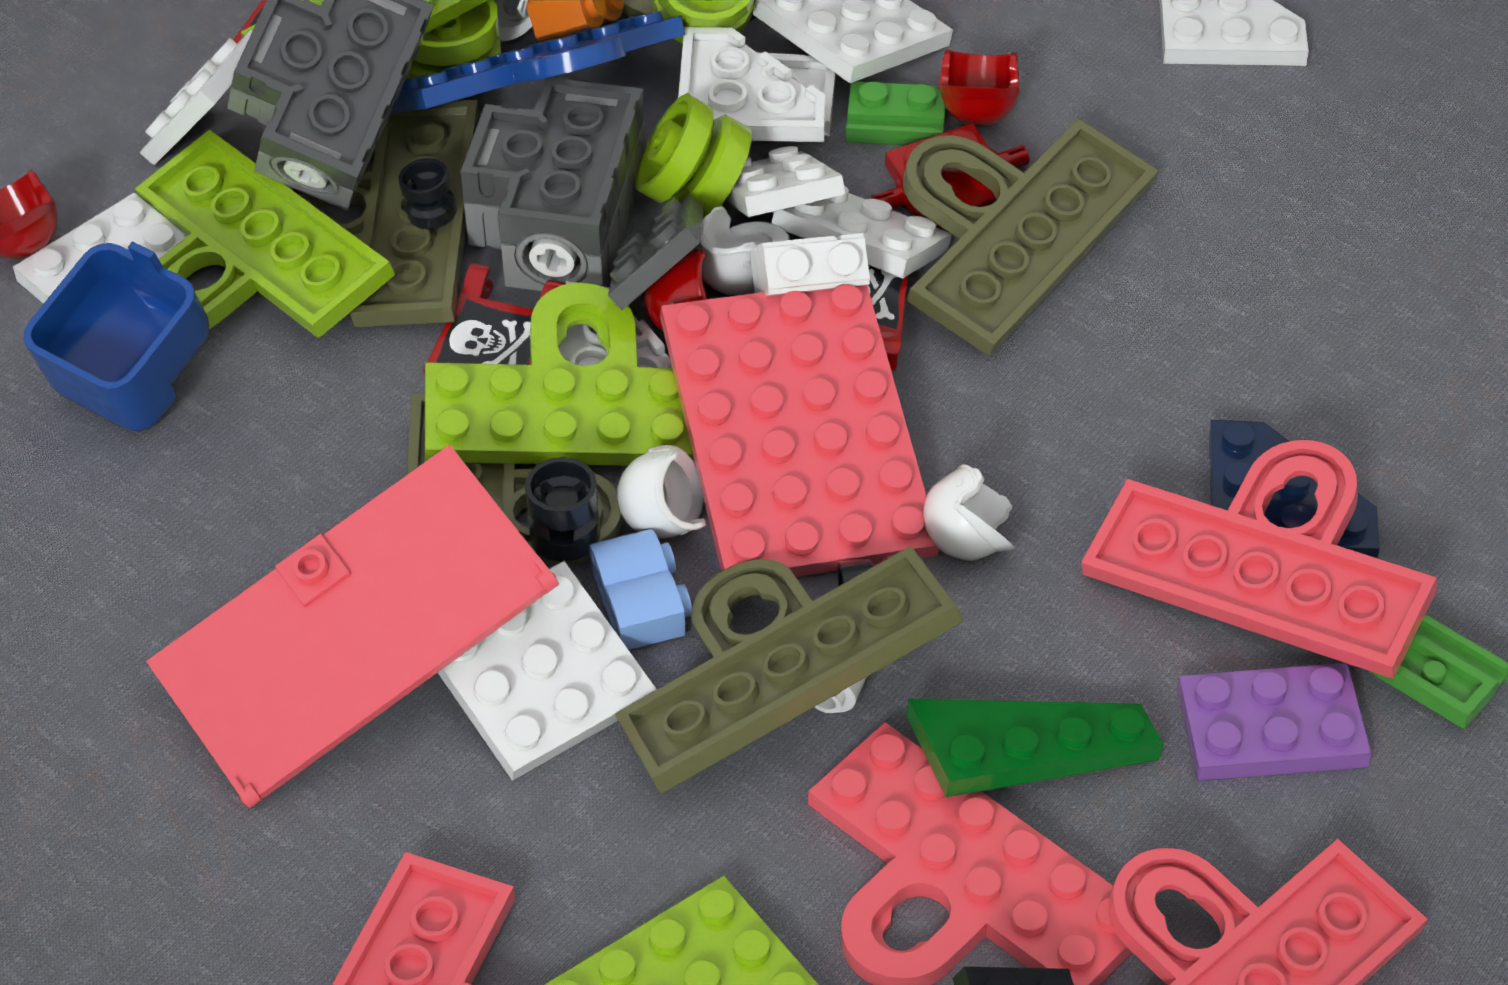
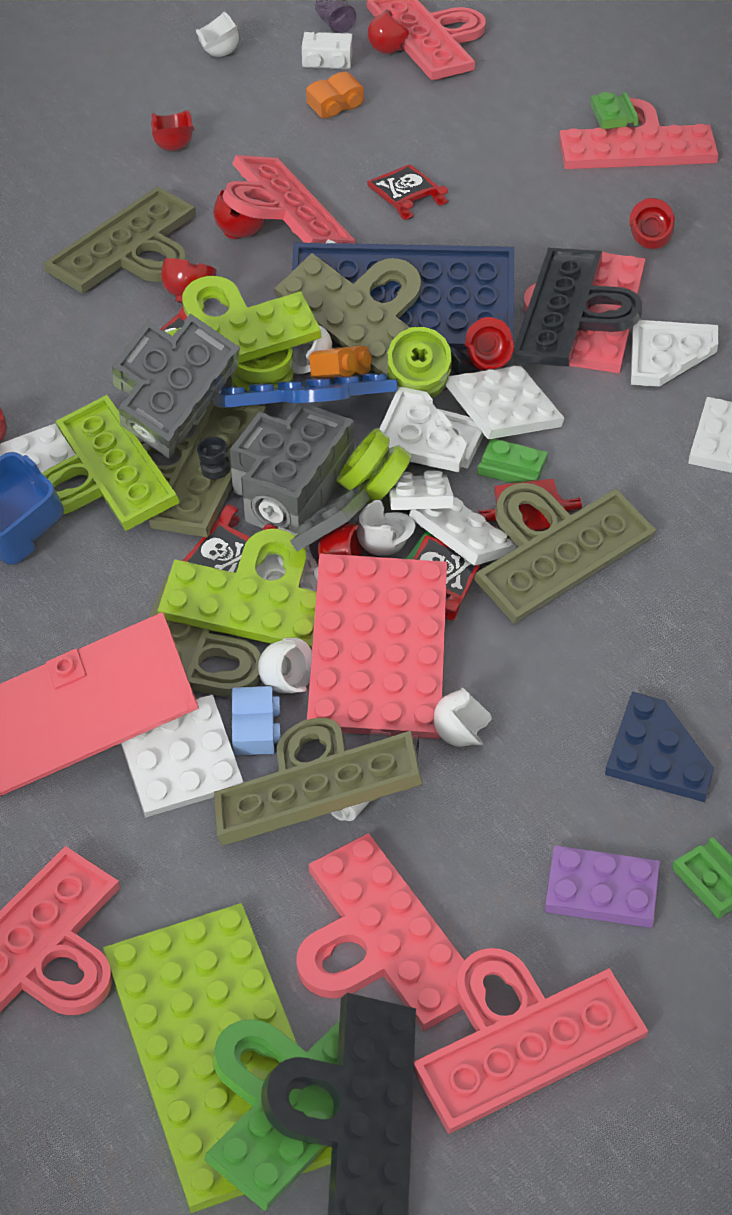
camera: 15 degrees right, 0 degrees up
(193, 100) = (95, 380): white plate -> none
(562, 509) = (221, 663): black wheel -> none
(809, 264) = (416, 547): white brick -> none
(979, 86) = (564, 456): red helmet -> none
(1022, 742) = (441, 863): green wing -> none
(1265, 575) = (626, 797): coral plate -> none

